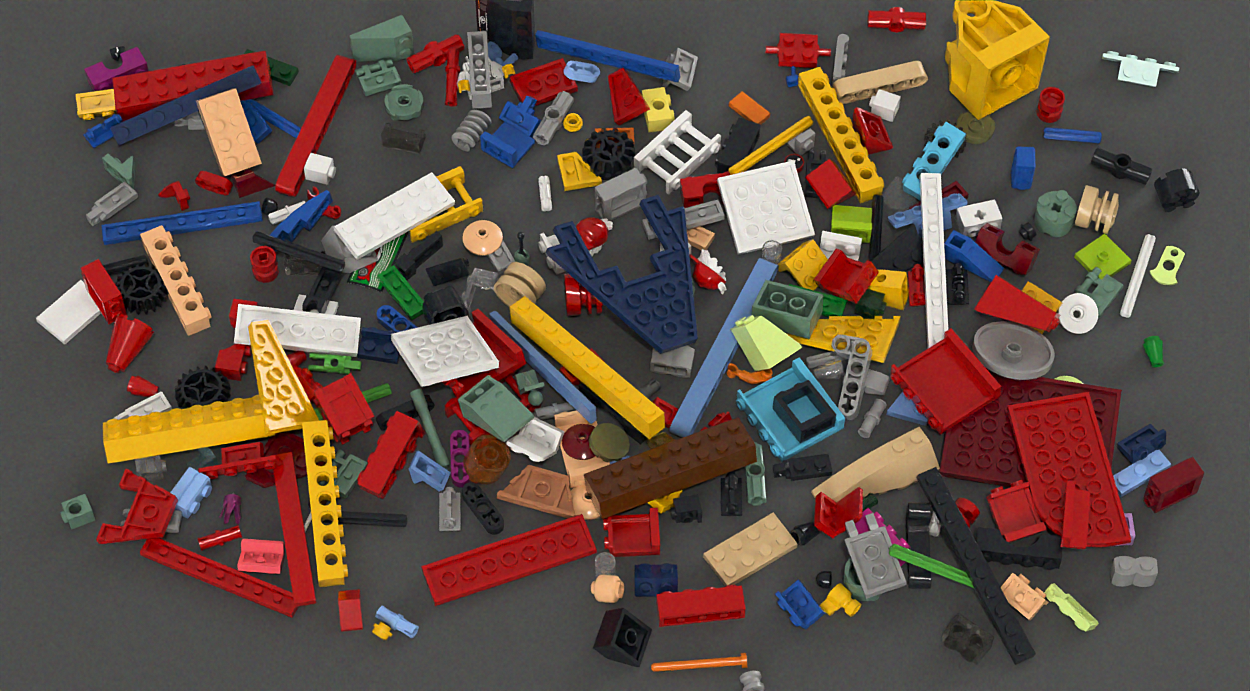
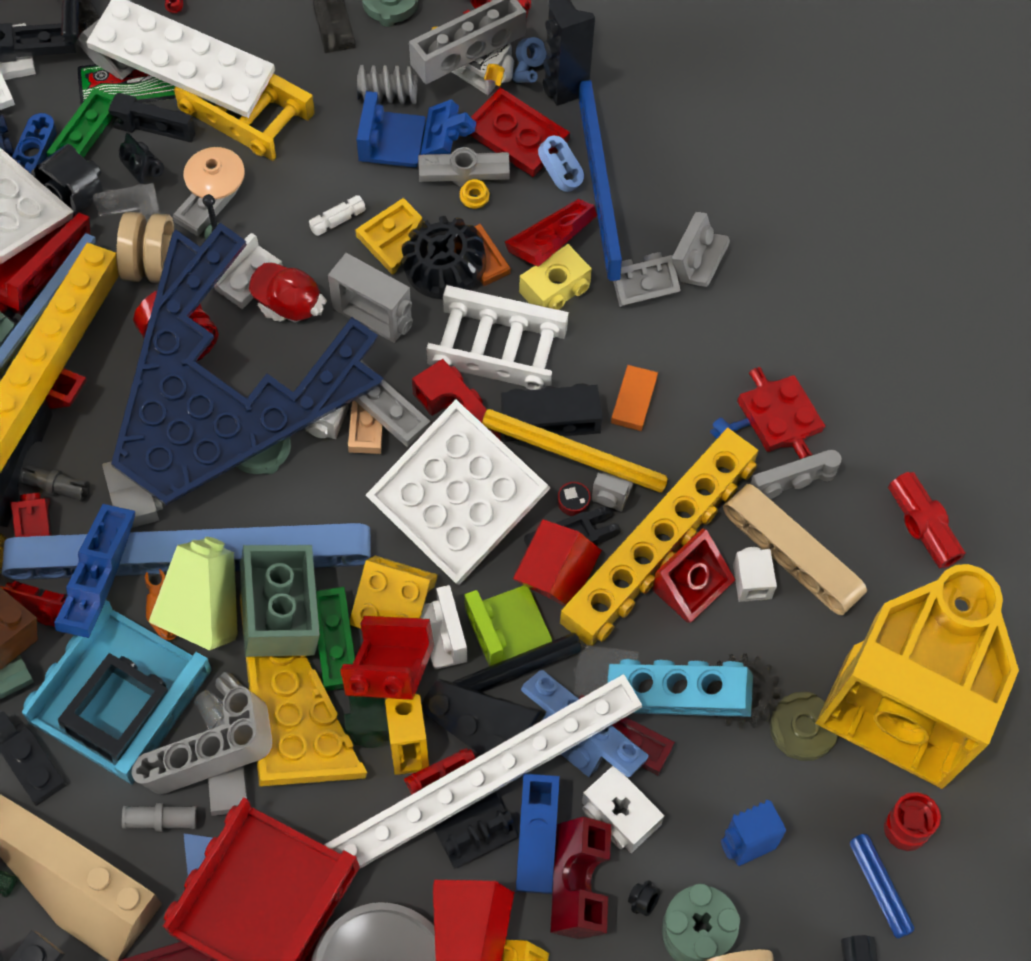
camera: 60 degrees right, 5 degrees up
(681, 35) = (699, 252): none -> light grey bracket
(707, 272) = (306, 467): red hair -> none
(719, 385) = (95, 571): none -> blue slope
(772, 251) = (387, 531): clear wheel -> none

